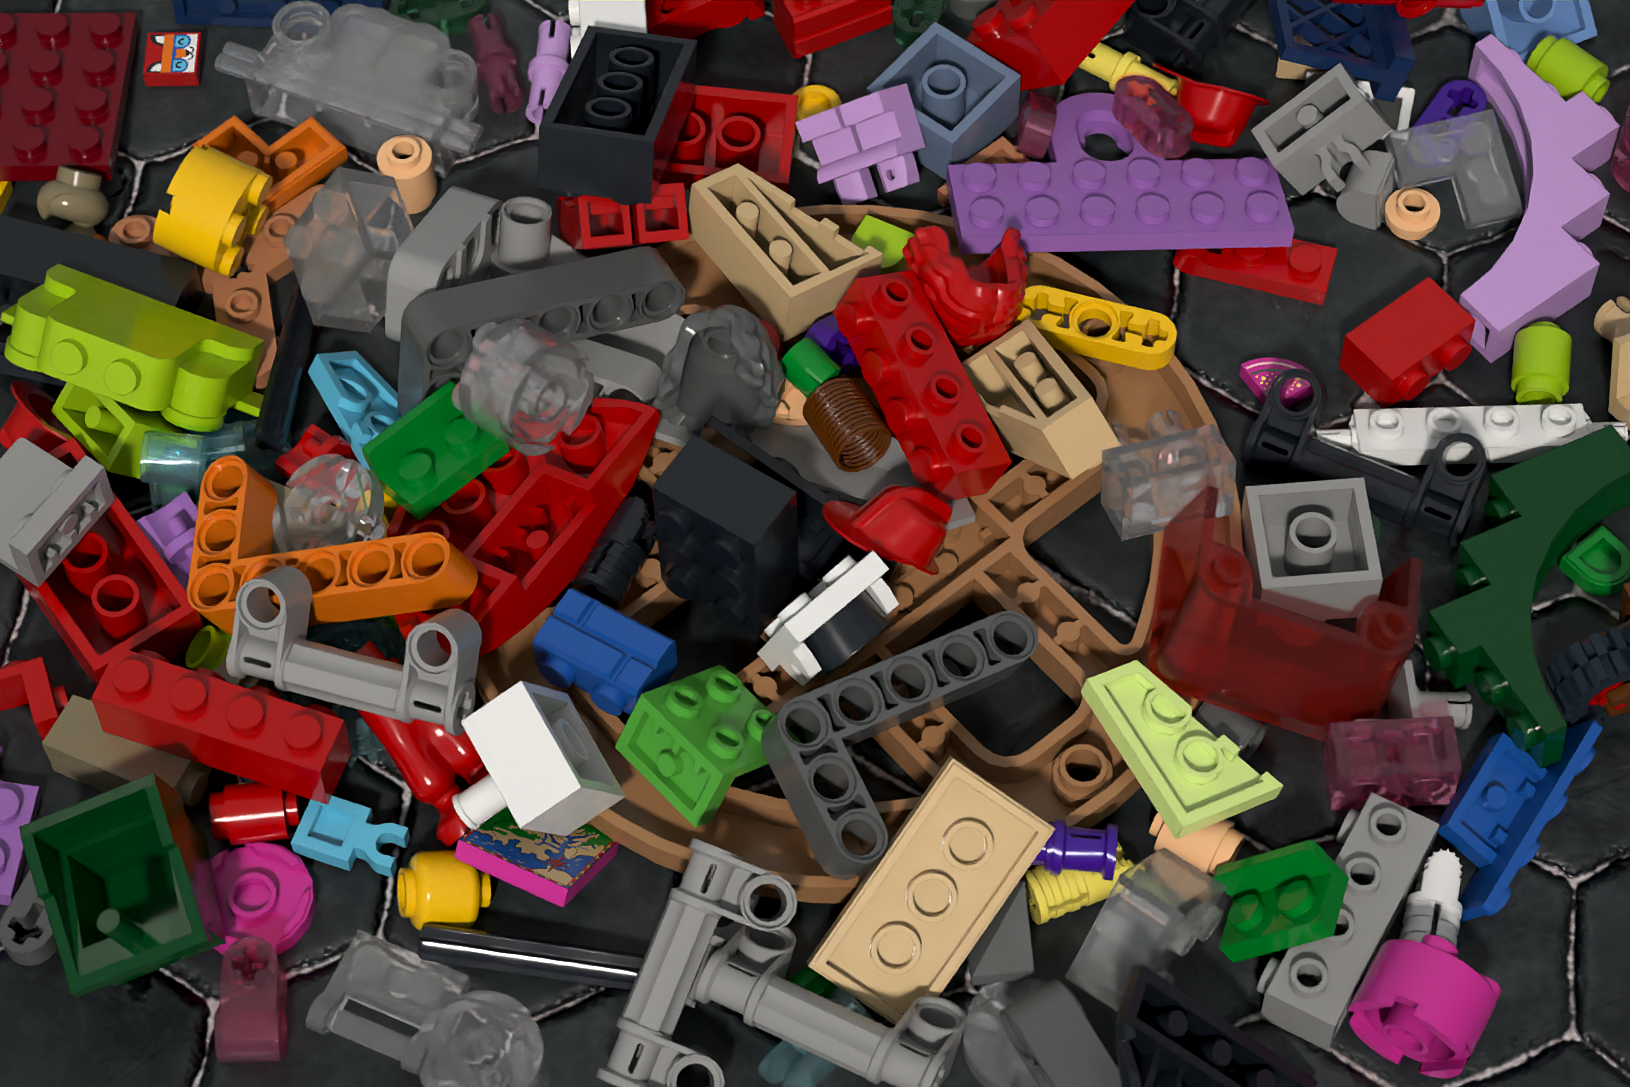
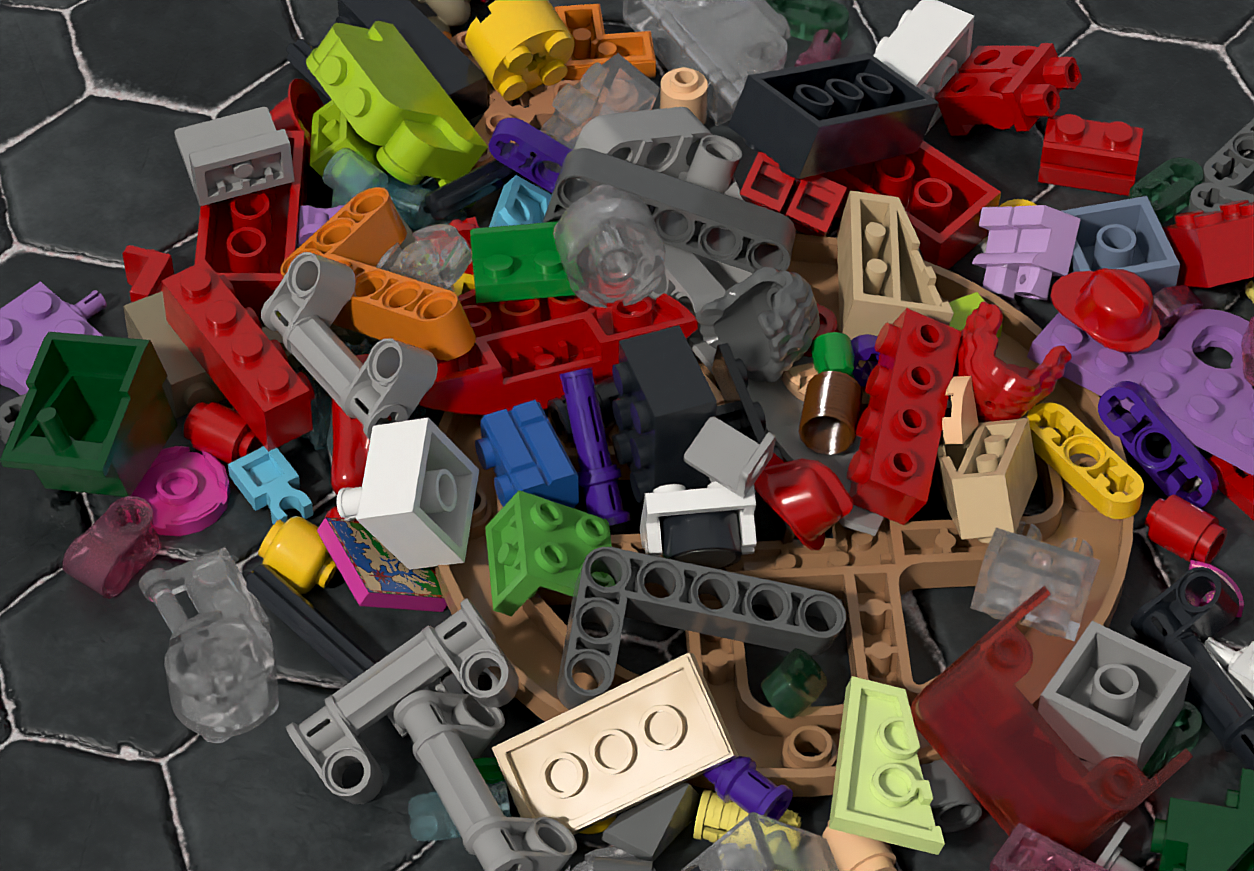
camera: 35 degrees right, 10 degrees down
(311, 322) = (518, 155): none -> dark purple beam
(663, 612) = (597, 473): none -> dark purple pin
(842, 537) = (729, 456): none -> light grey bracket
(971, 352) = (963, 415): none -> light nougat tile
(1000, 158) = (1110, 307): none -> red piece
(1027, 717) = (794, 683): none -> clear green beam
(1121, 250) = (1145, 407): none -> dark purple beam
(1216, 337) = (1185, 529): none -> red brick

